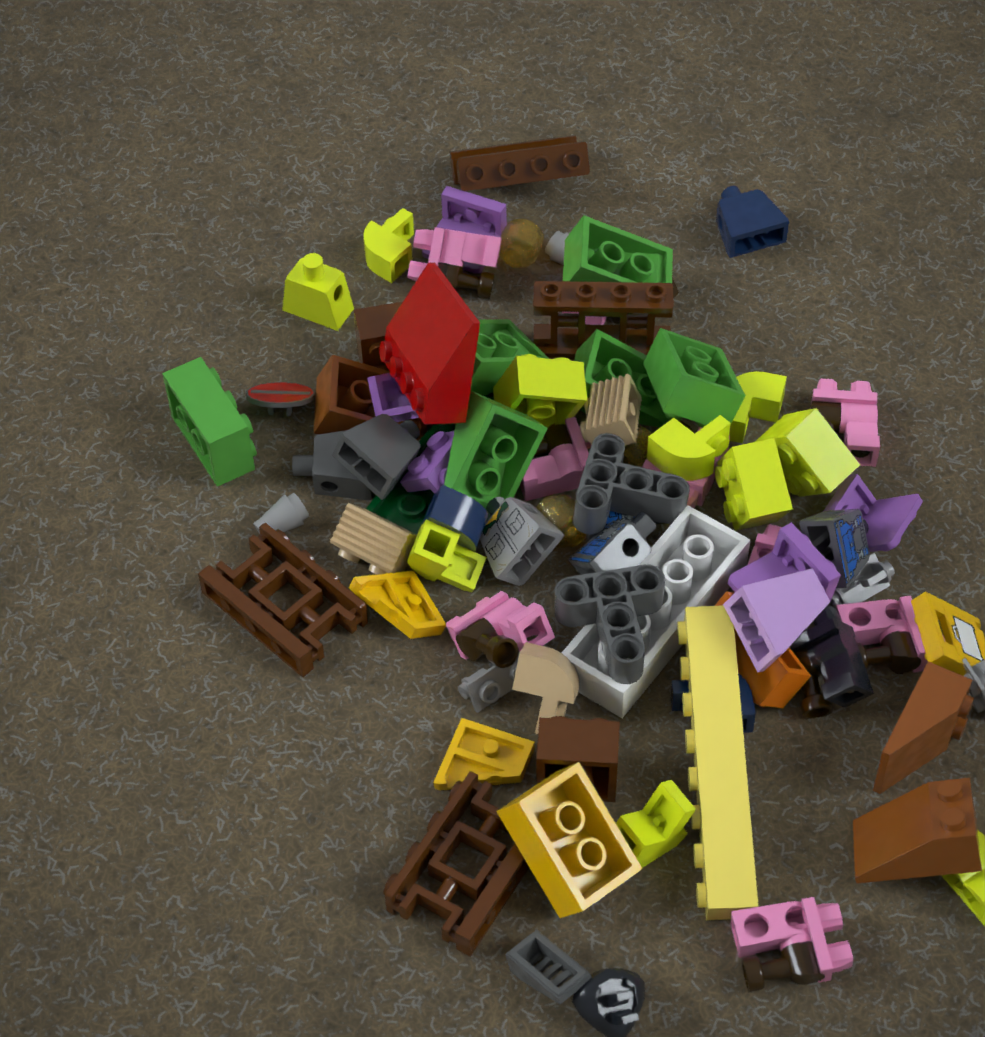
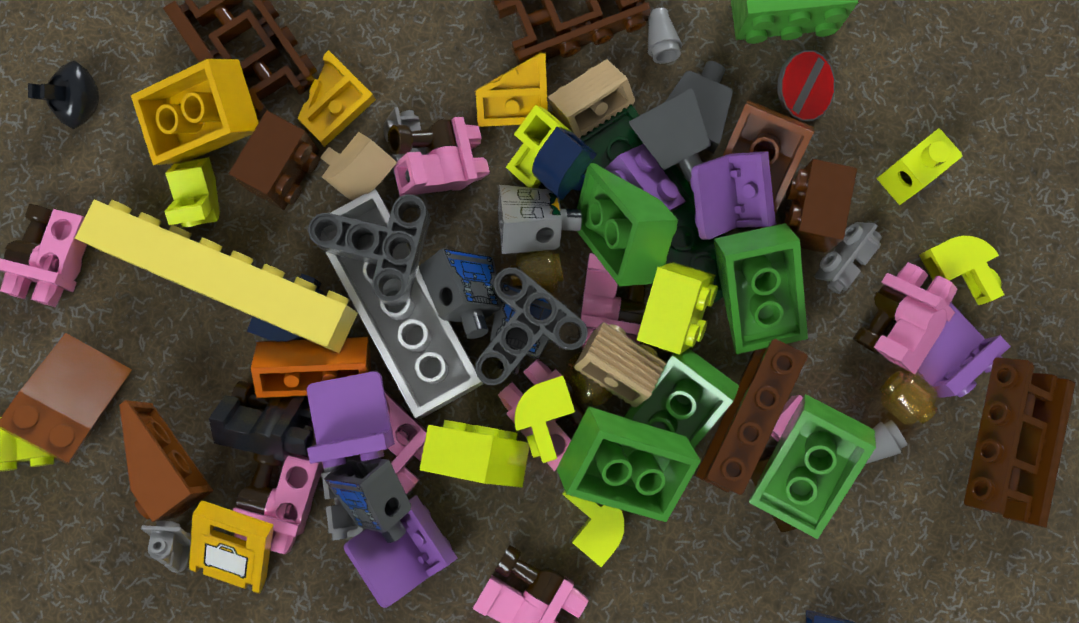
camera: 115 degrees right, 30 degrees up
(433, 349) = (740, 193): red slope -> none
(539, 947) = (124, 45): dark grey slope -> none
(775, 613) = (296, 383): lavender slope -> none
(810, 453) = (484, 523): neon yellow brick -> none

